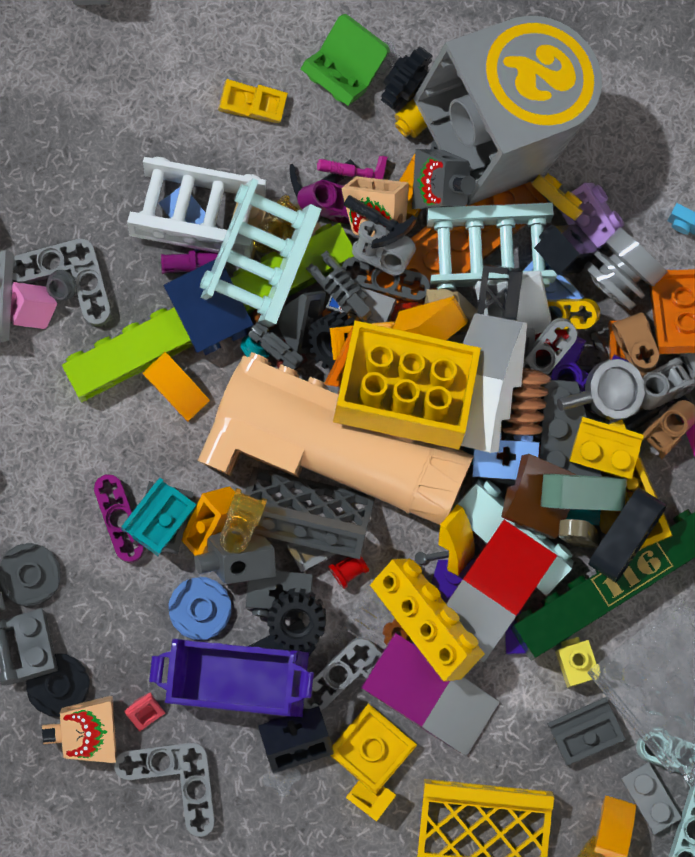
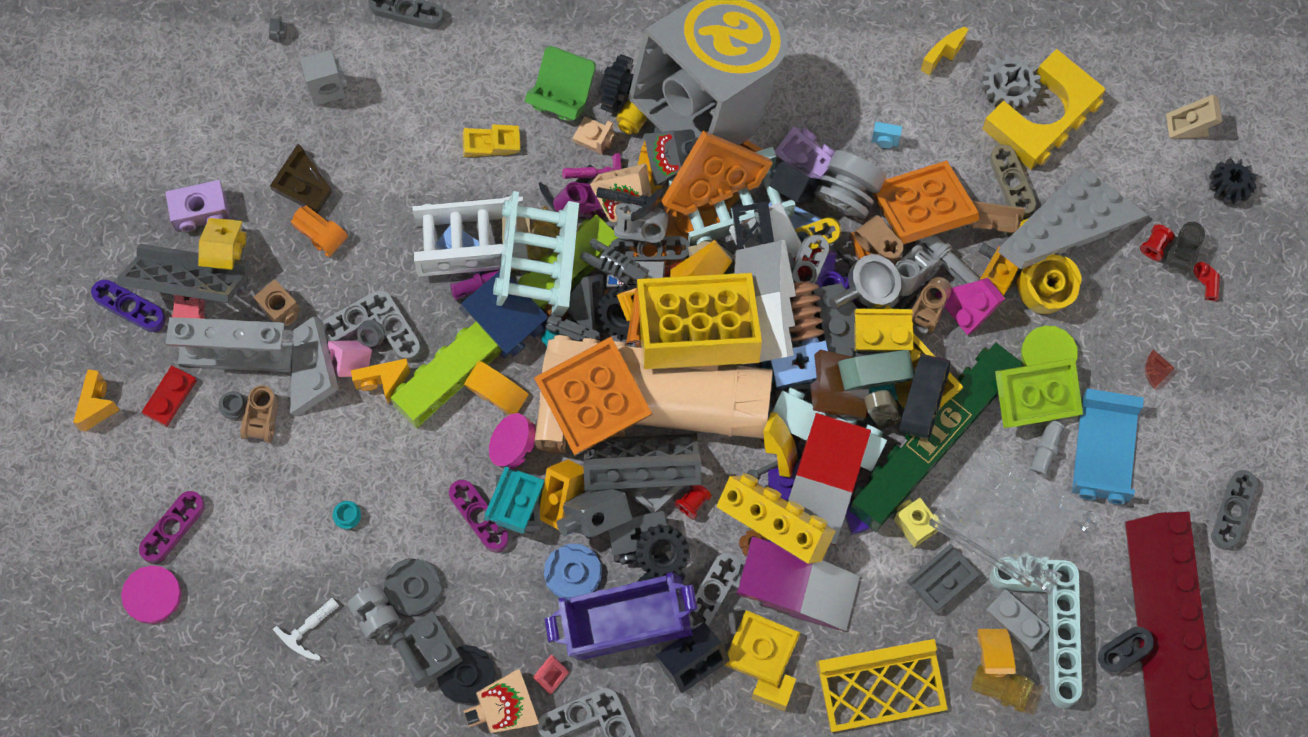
camera: 15 degrees left, 10 degrees down
(36, 90) = (301, 181): none -> dark brown wing
(41, 157) = (322, 234): none -> orange piece
(68, 338) = (388, 374): none -> light orange slope
(175, 450) = (511, 441): none -> dark pink tile
(241, 517) = (589, 471): clear yellow piece -> none
(270, 435) = (593, 396): none -> orange plate
(366, 127) = (595, 135): none -> light nougat bracket
(477, 218) = (714, 173): none -> orange plate
(567, 203) = (766, 139): yellow plate -> none

